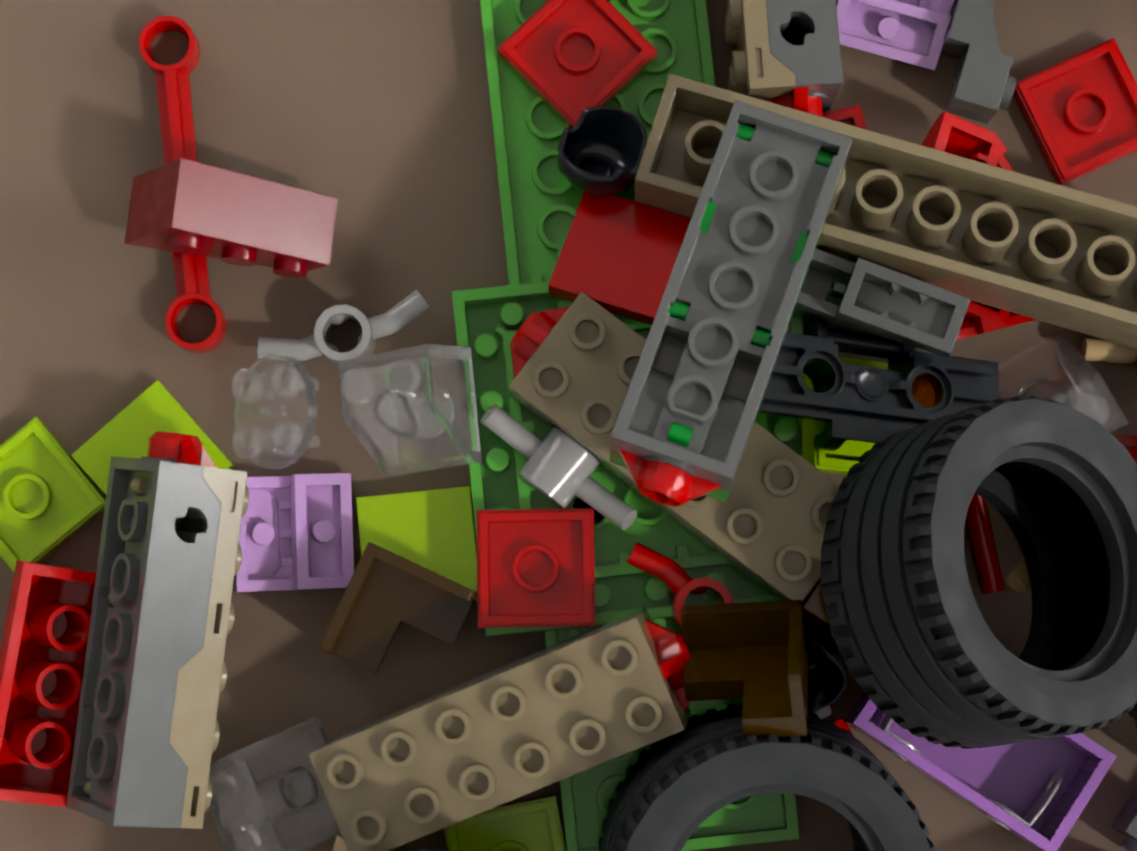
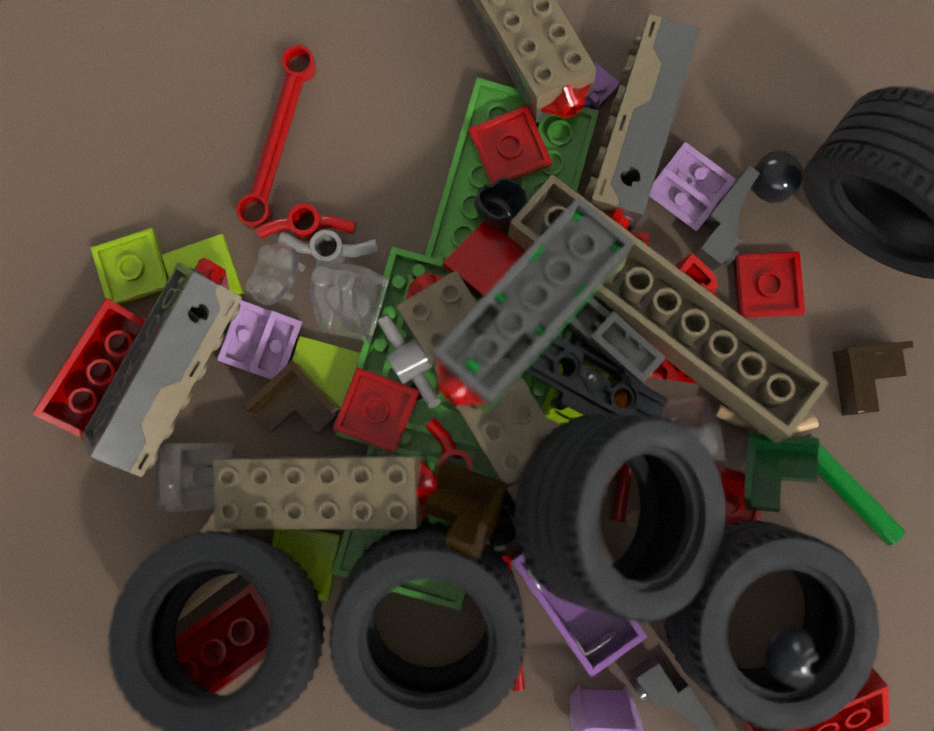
camera: 25 degrees right, 0 degrees up
(231, 218) = (292, 162): wedge -> none
(265, 319) = (296, 214): none -> red piece

